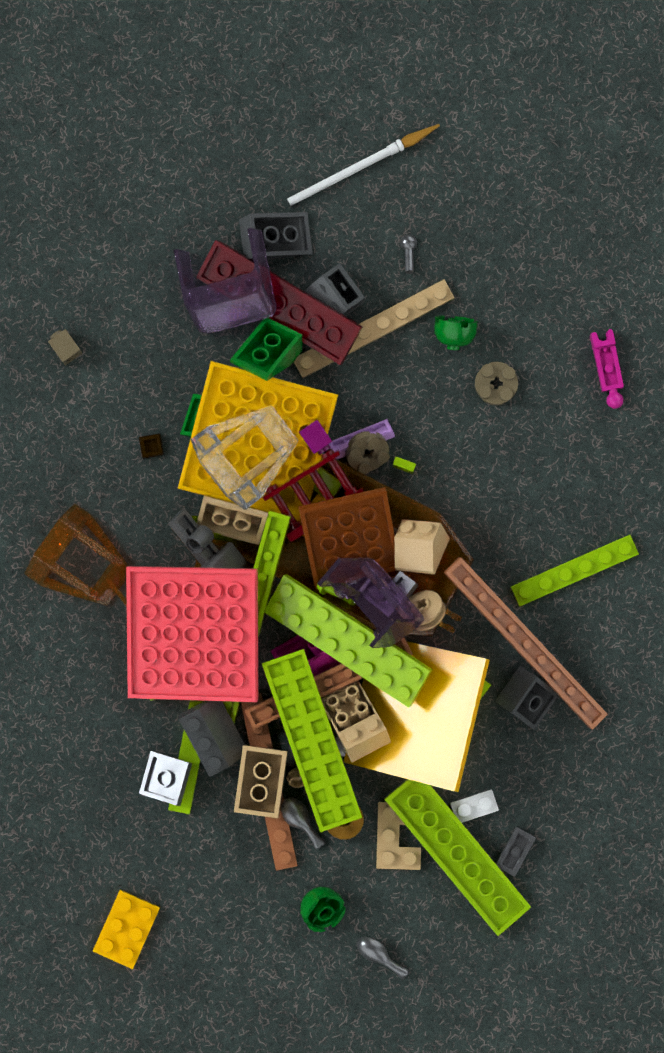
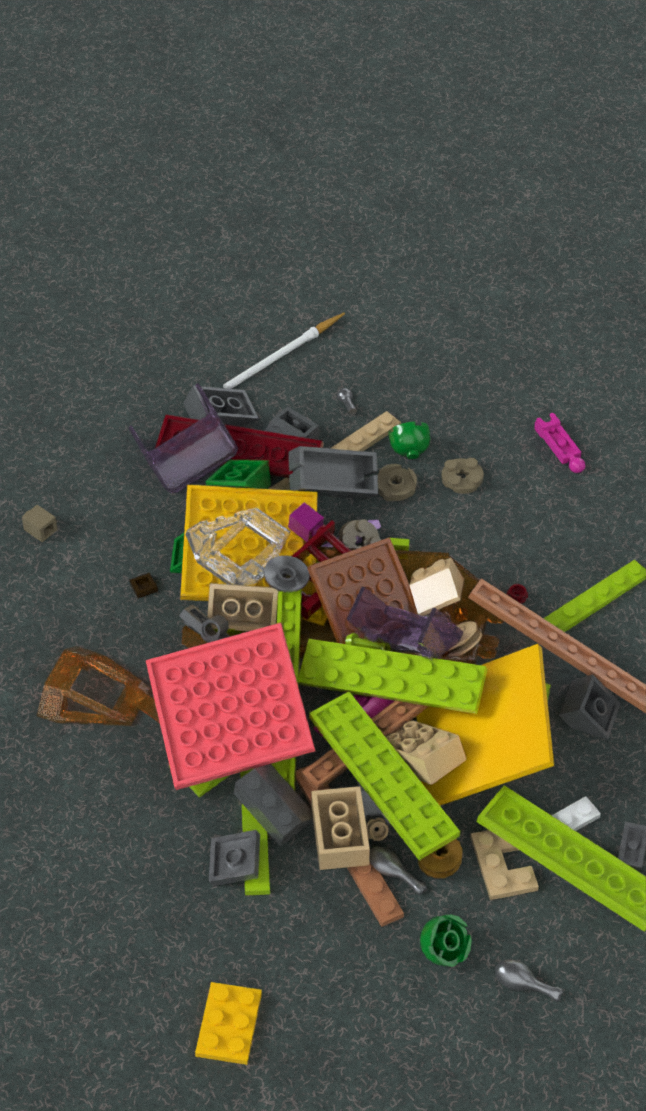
camera: 20 degrees left, 35 degrees down
(278, 492) = (286, 574): none -> flat silver dish
(361, 370) = (333, 472): none -> dark grey piece
(435, 369) = (399, 491): none -> dark tan plate
(509, 548) = (518, 589): none -> dark red plate

